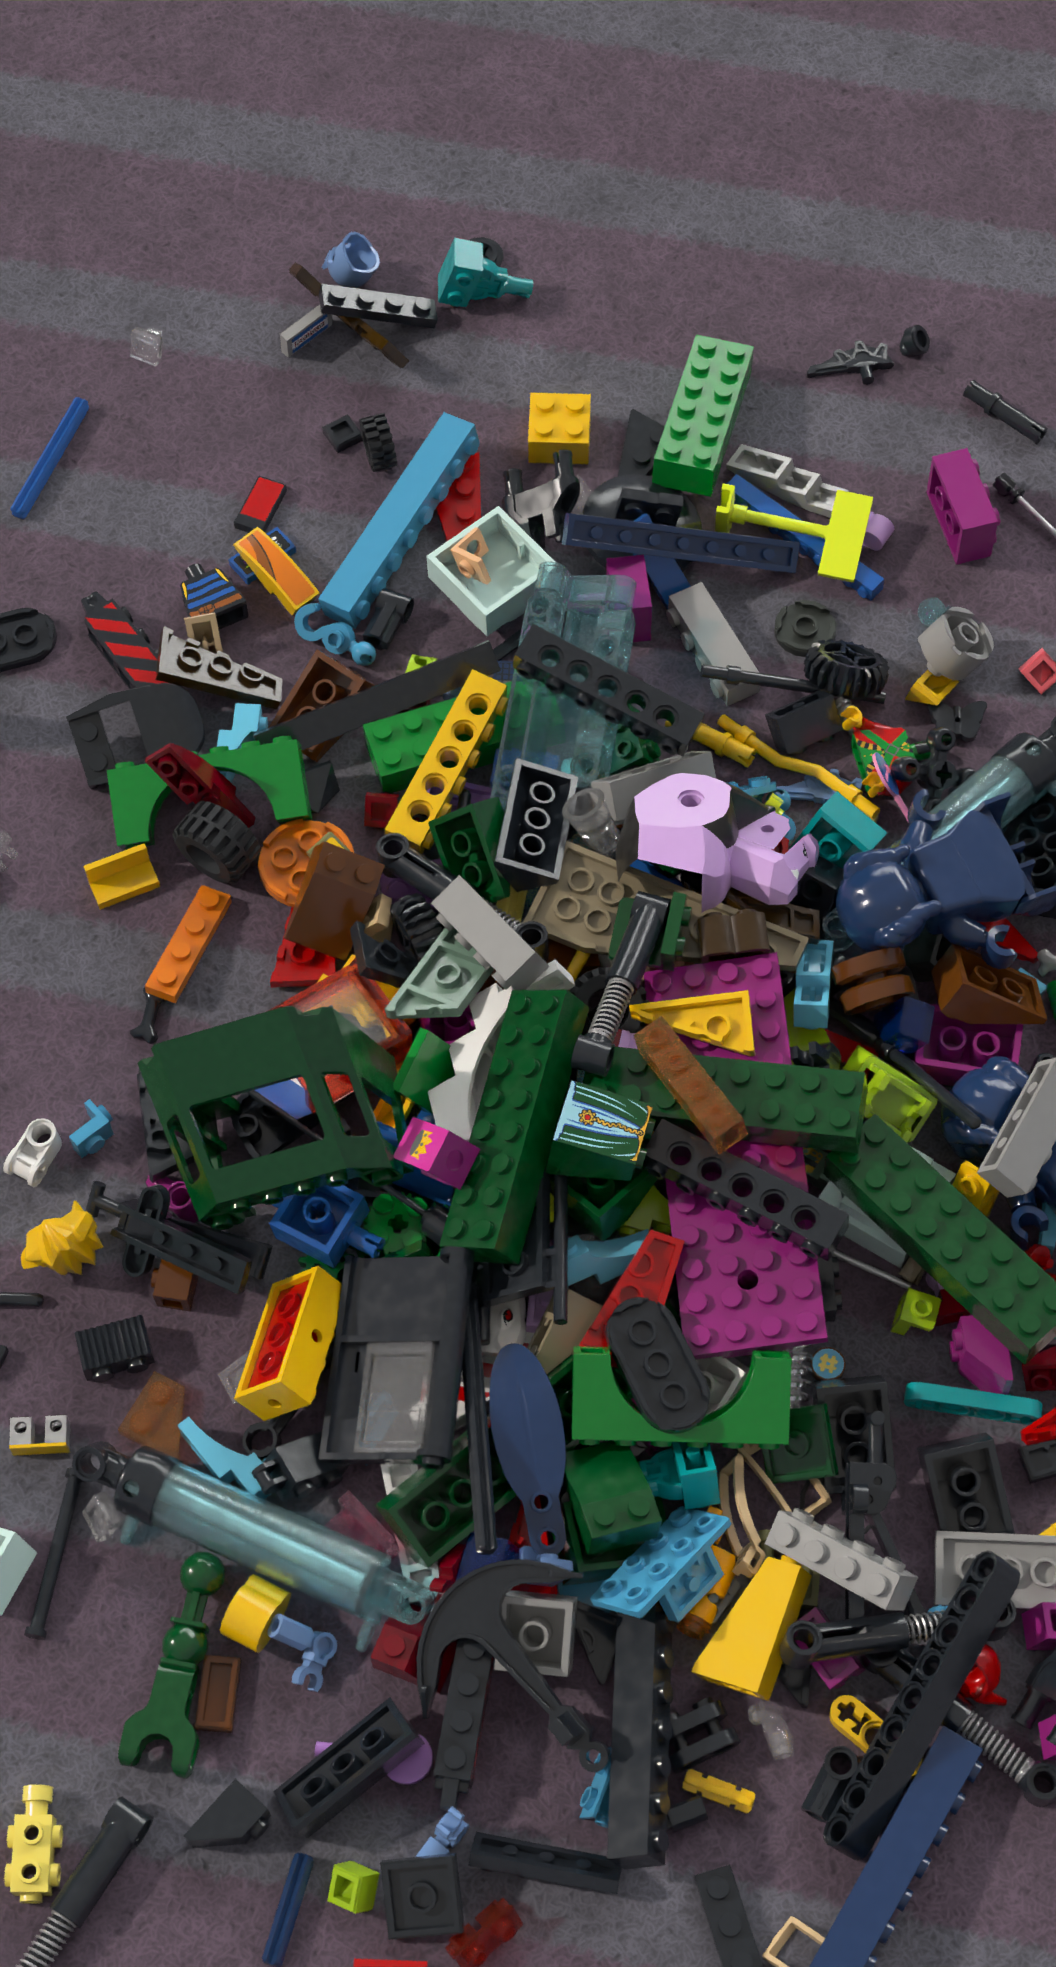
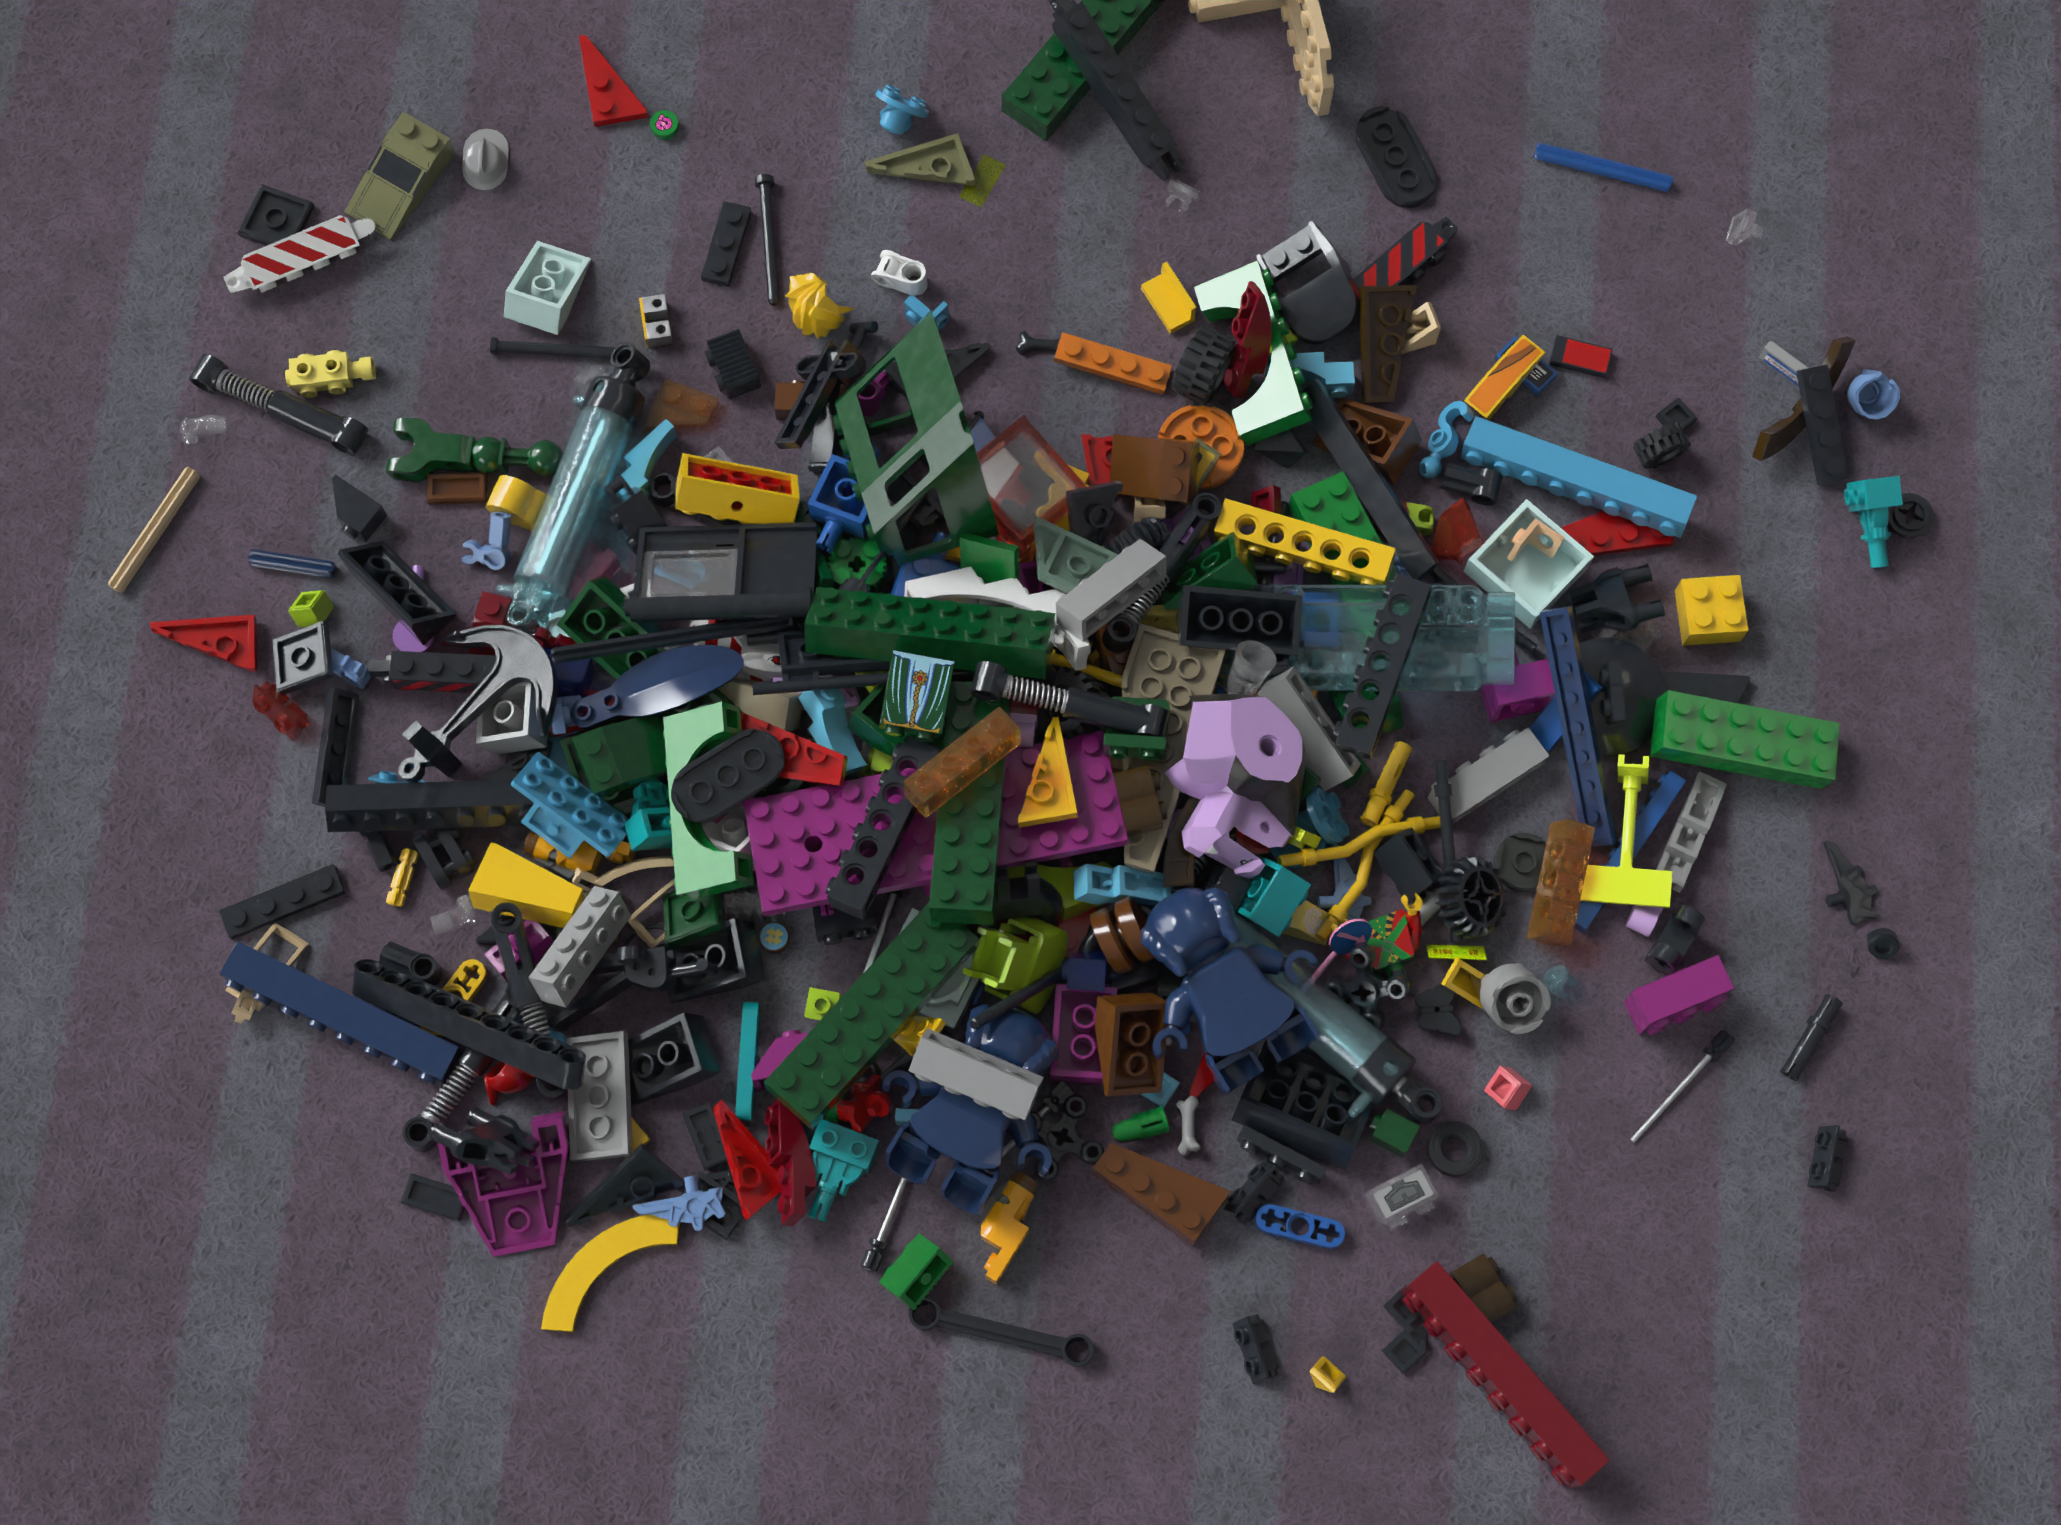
camera: 80 degrees right, 10 degrees up
(212, 593) = (1467, 326): torso -> none
(436, 1152) = (888, 560): piece -> none
(446, 630) = (1456, 533): none -> clear red slope
(792, 804) = (1309, 856): none -> yellow bar
(821, 595) = (1560, 882): none -> clear orange brick
(896, 697) = (1454, 951): none -> clear neon green sticker
(905, 509) = (1675, 939): none -> black piece

